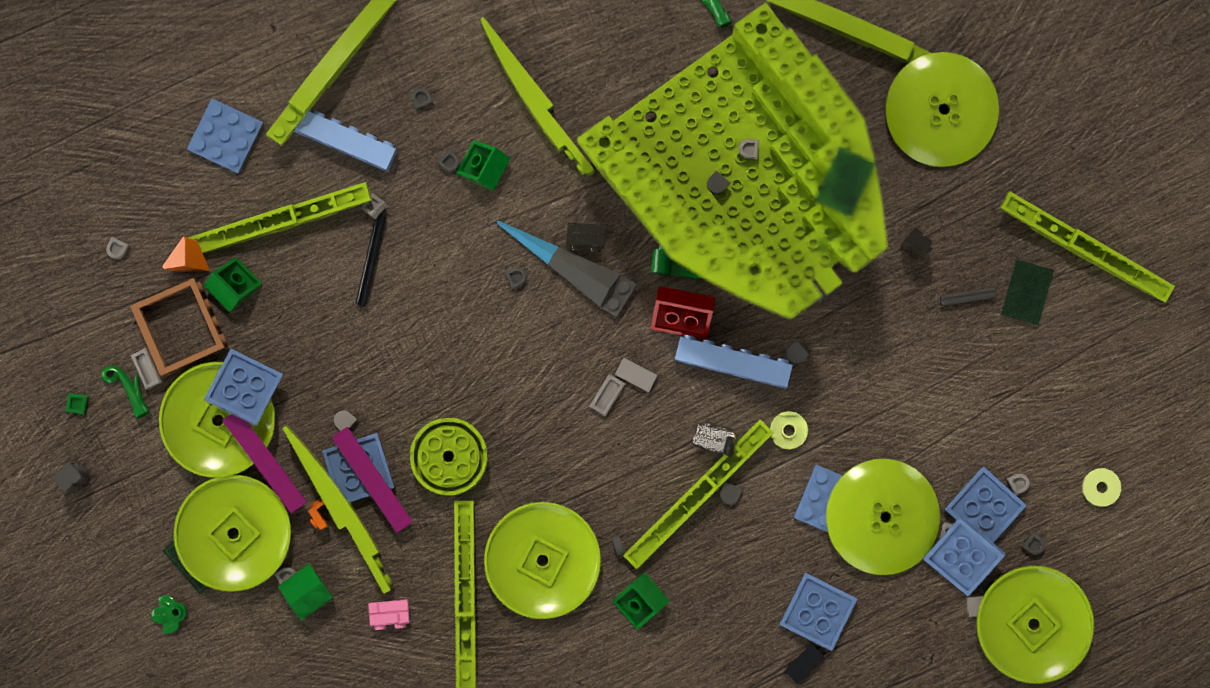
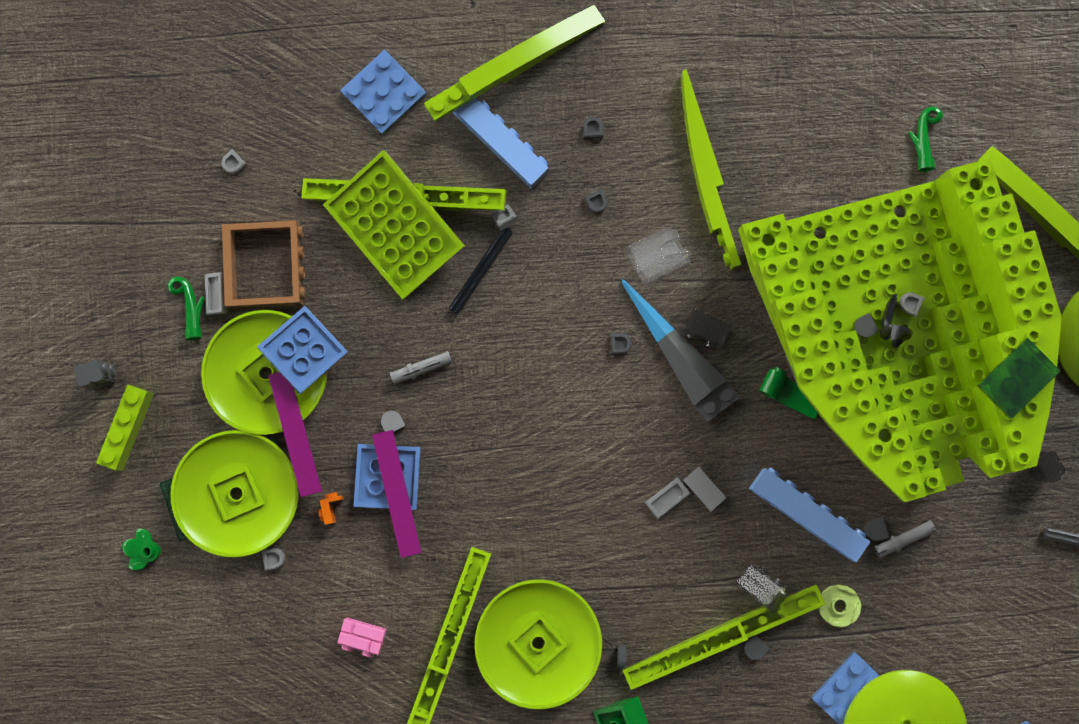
camera: 20 degrees right, 0 degrees up
(76, 403) = (132, 302): green tile -> none
(114, 514) = (124, 428): none -> lime brick
(187, 257) = (298, 197): orange slope -> none
(232, 284) = (330, 243): green slope -> none
(280, 249) = (393, 224): none -> lime plate
(305, 591) = (285, 582): green slope -> none
(340, 508) = (353, 510): lime slope -> none
(353, 362) = (421, 367): none -> light grey pin
(469, 456) = (505, 500): lime brick -> none
(483, 165) = (630, 217): green slope -> none
(520, 189) = (658, 256): none -> clear slope
(682, 313) = (776, 444): red slope -> none
(739, 179) = (897, 333): none -> black hair
(818, 357) = (904, 539): none -> light grey pin

